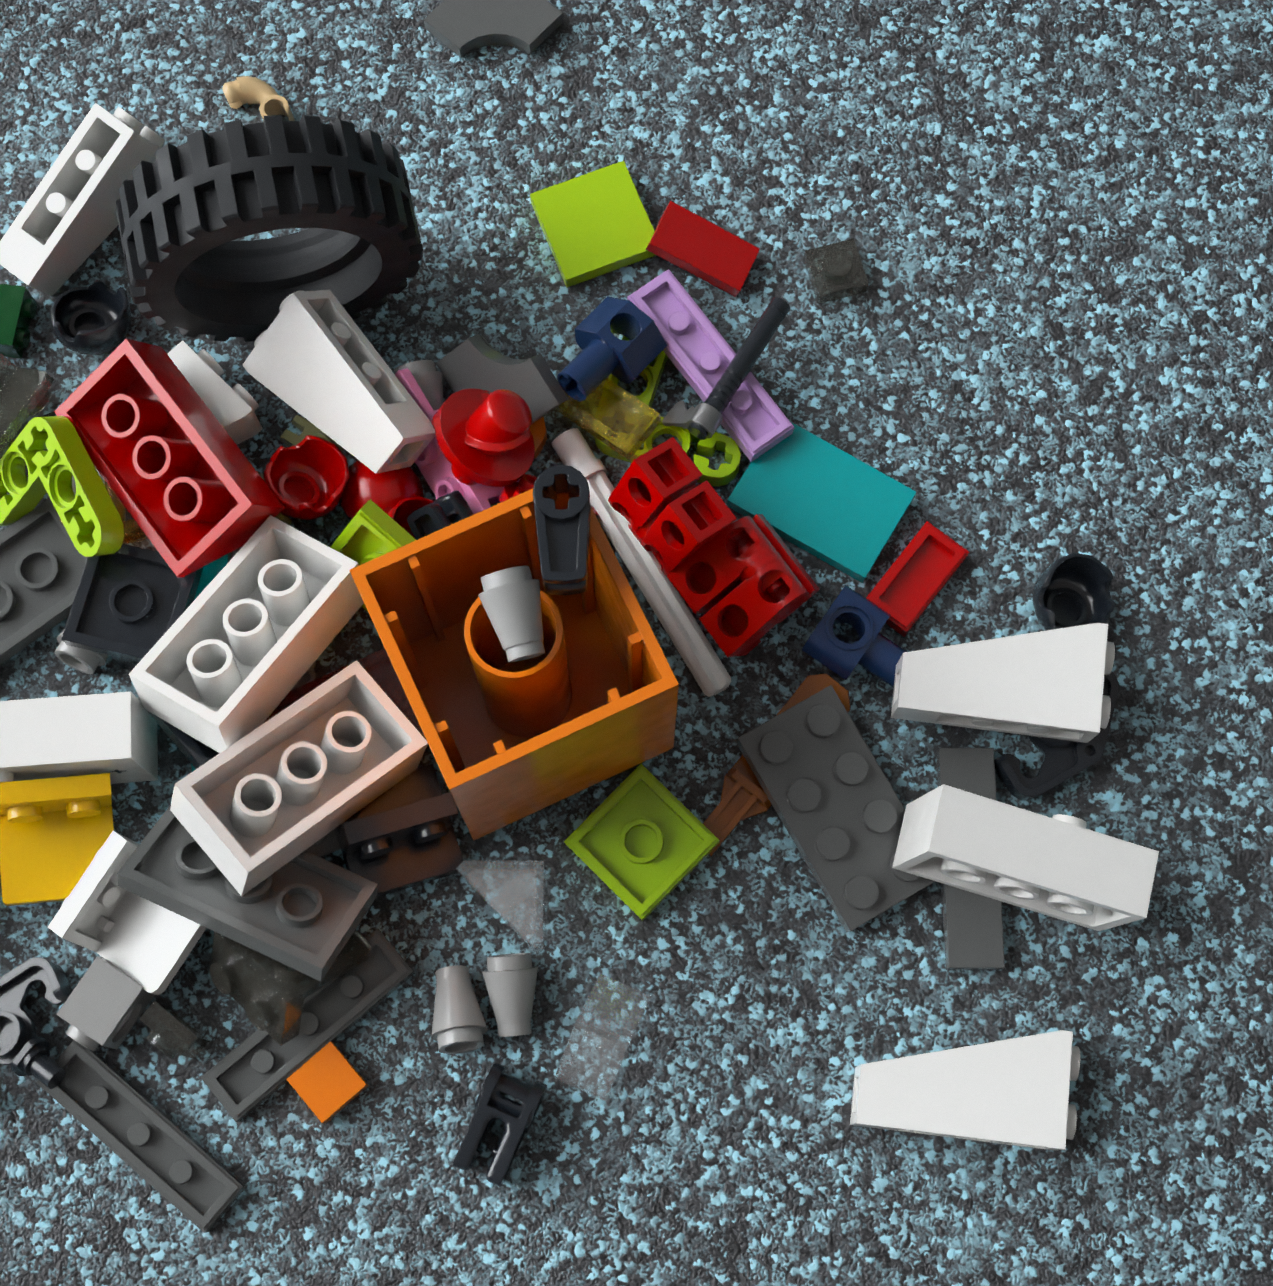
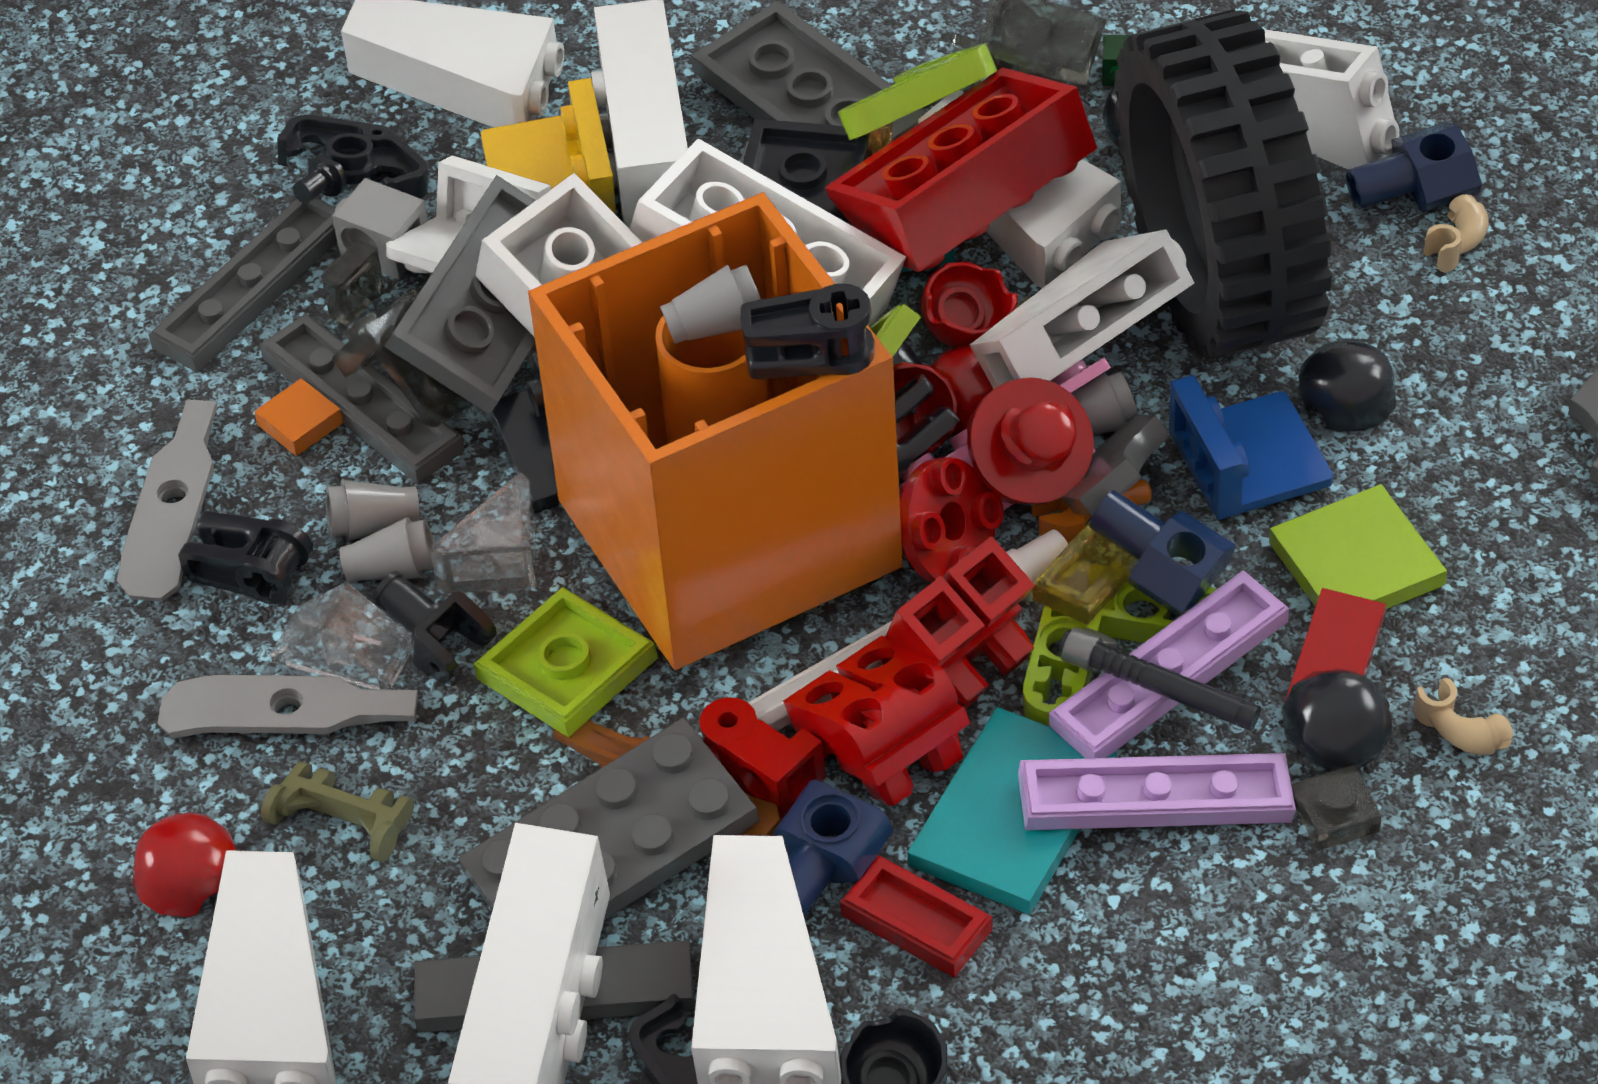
camera: 90 degrees right, 25 degrees down
(177, 121) = (1428, 163): none -> dark blue piece
(432, 201) = (1348, 385): none -> black hair
(449, 1208) = (160, 529): none -> light grey piece
(483, 285) = (1244, 451): none -> blue bracket
(594, 958) = (432, 622): none -> black piece
(663, 1120) = (252, 701): none -> light grey piece
(752, 700) = (760, 756): none -> red leg
(765, 254) = (1337, 719): none -> black hair
(776, 170) = (1471, 735): none -> tan arm
(800, 1000) = (317, 793): none -> olive piece
(822, 392) = (1155, 791): none -> lavender tile
(832, 1168) = (180, 863): none -> red hair

